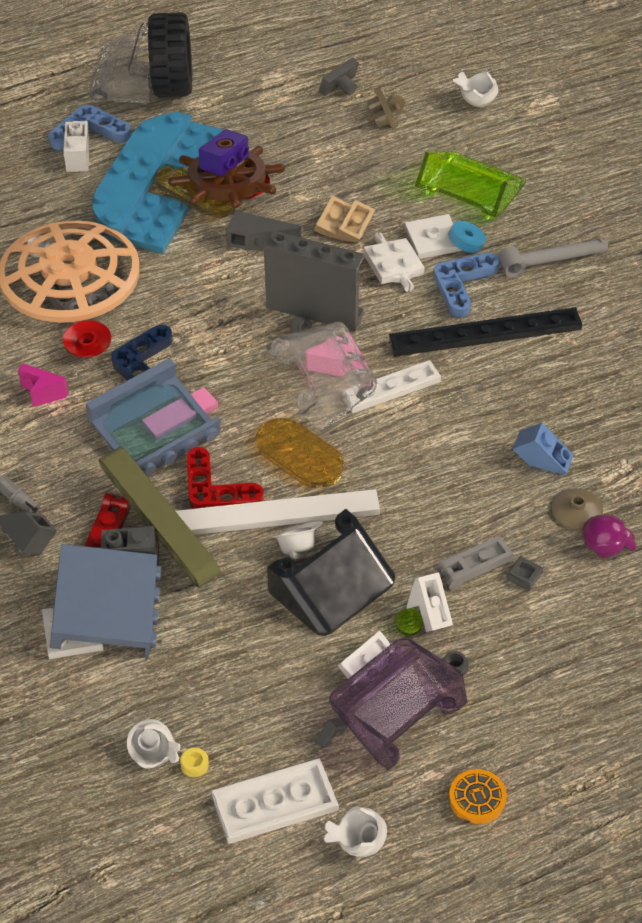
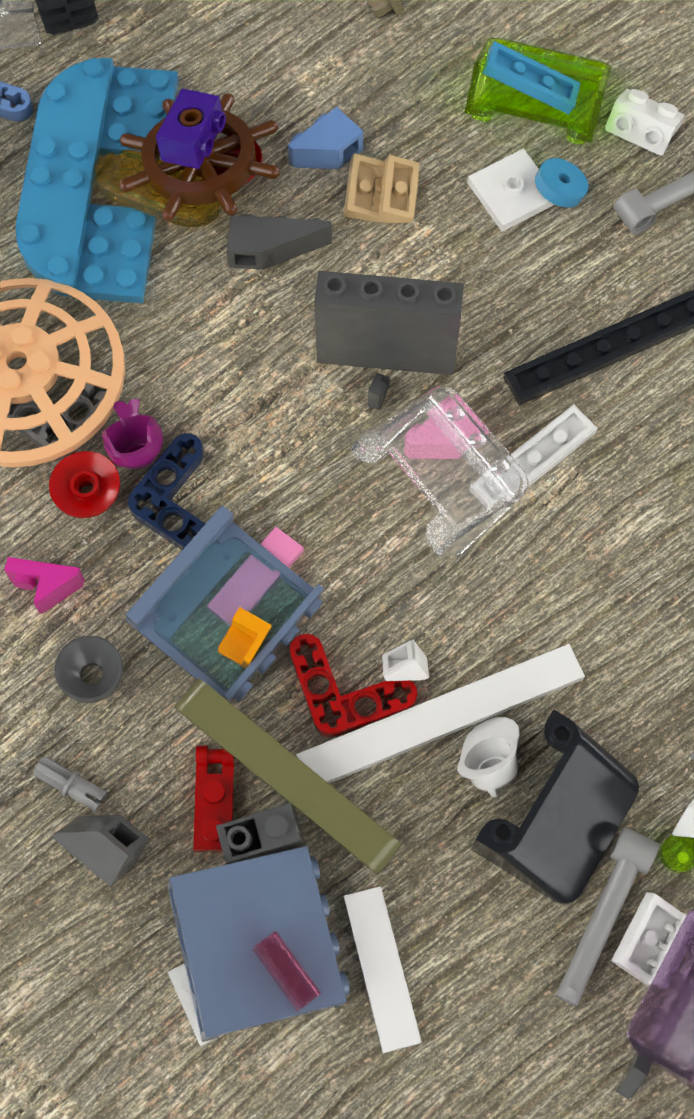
camera: 15 degrees left, 20 degrees up
(52, 429) = (84, 653): none -> dark grey piece
(117, 610) = (286, 971): none -> clear pink piece
(129, 321) = (134, 438): none -> magenta hat
(163, 434) = (244, 638): none -> light orange panel
(183, 641) = (382, 970): none -> white tile
(262, 476) = (405, 663): none -> white slope
(299, 452) = (443, 604): clear yellow tile -> none
(315, 186) = (326, 143): none -> medium blue slope
(373, 611) = (633, 855): none -> light grey piece
(393, 261) = (471, 245): white plate -> none
(465, 172) = (531, 77): none -> dark azure plate
(482, 266) = (564, 257): medium blue beam -> none
(537, 213) = (644, 121): none -> white bracket

